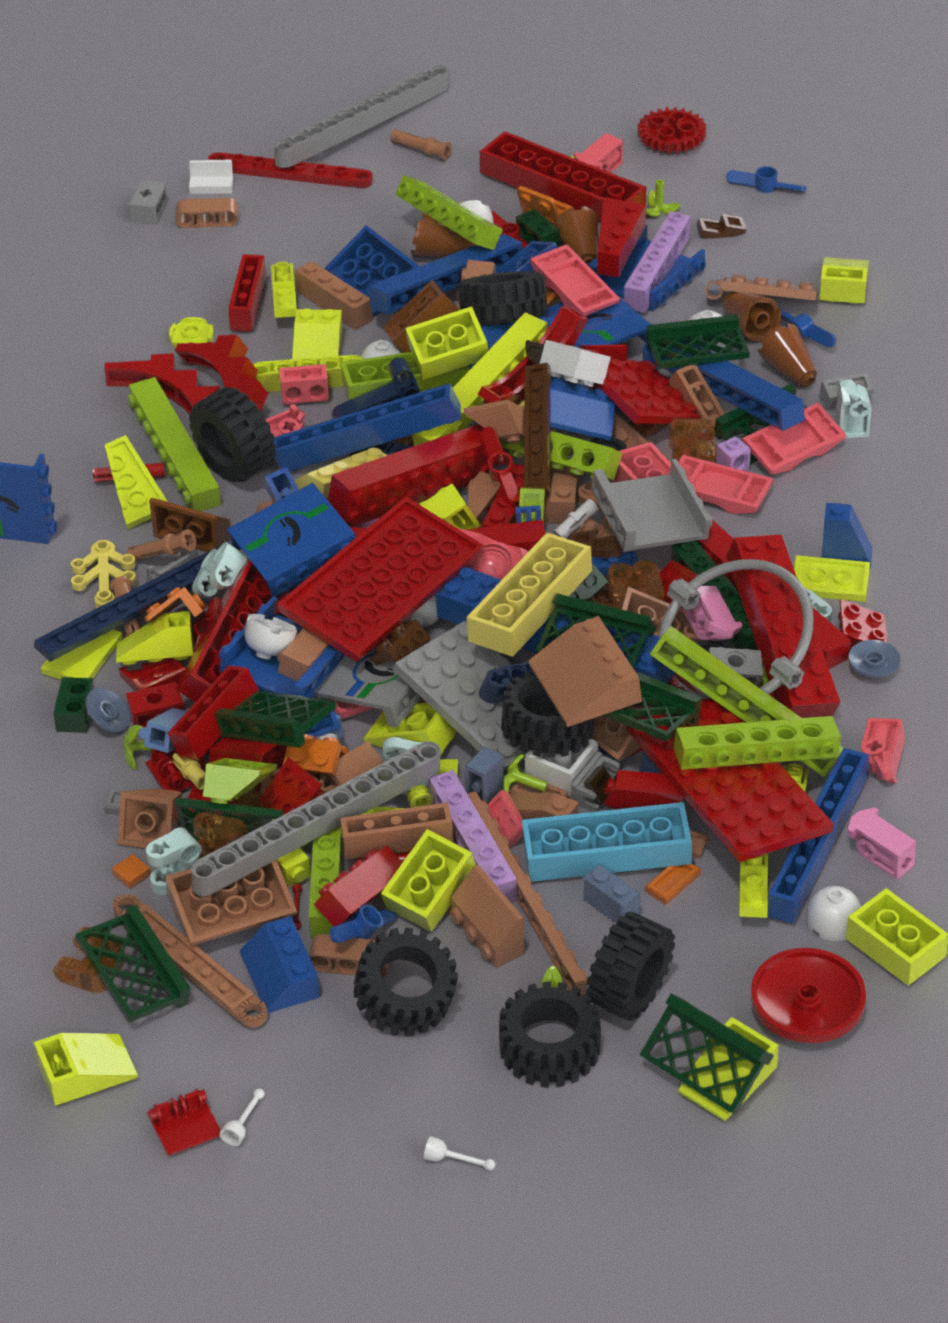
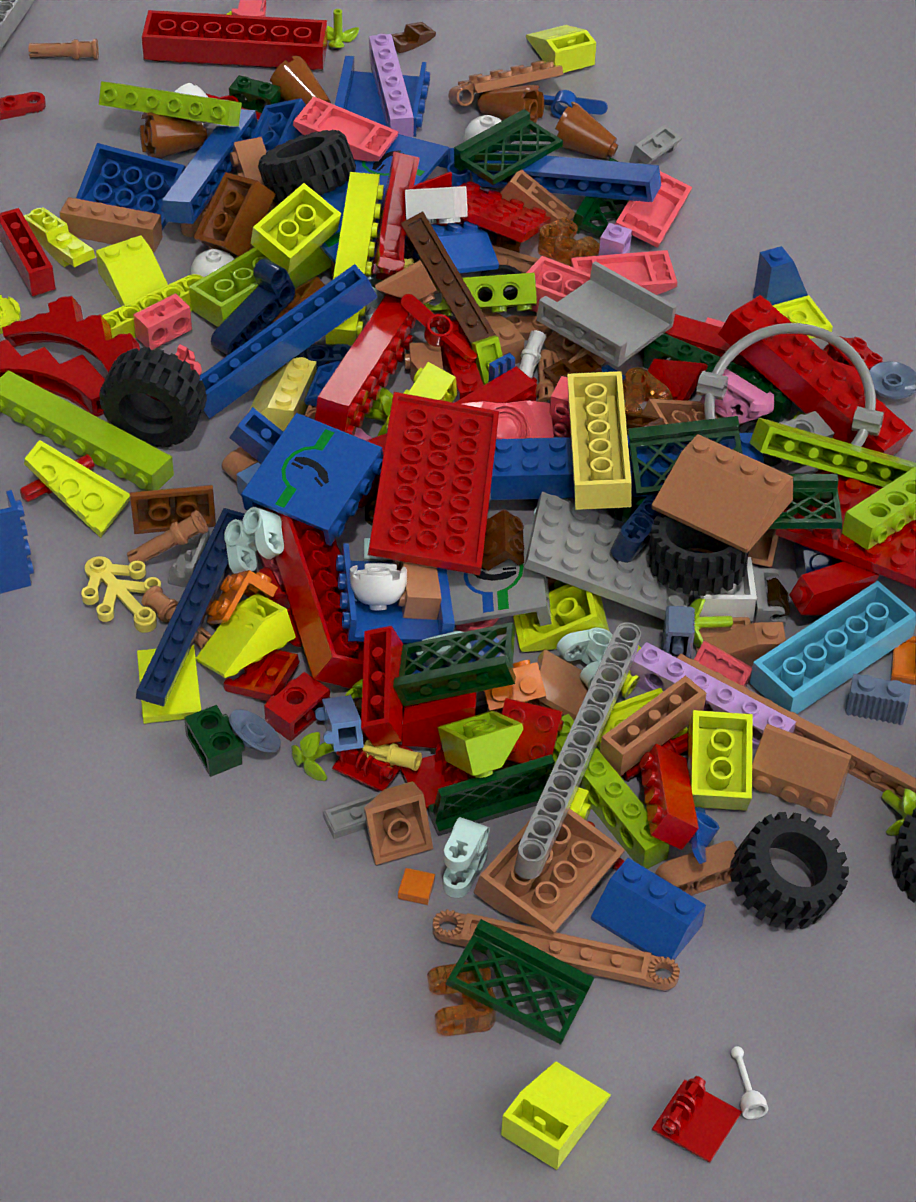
camera: 35 degrees left, 5 degrees up
(218, 832) = (501, 812): clear orange piece -> none
(534, 351) = (393, 207): dark brown tile -> none
(541, 203) = (231, 66): orange bracket -> none
(619, 232) = (343, 71): red wedge -> none
(853, 409) = (684, 159): light aqua piece -> none

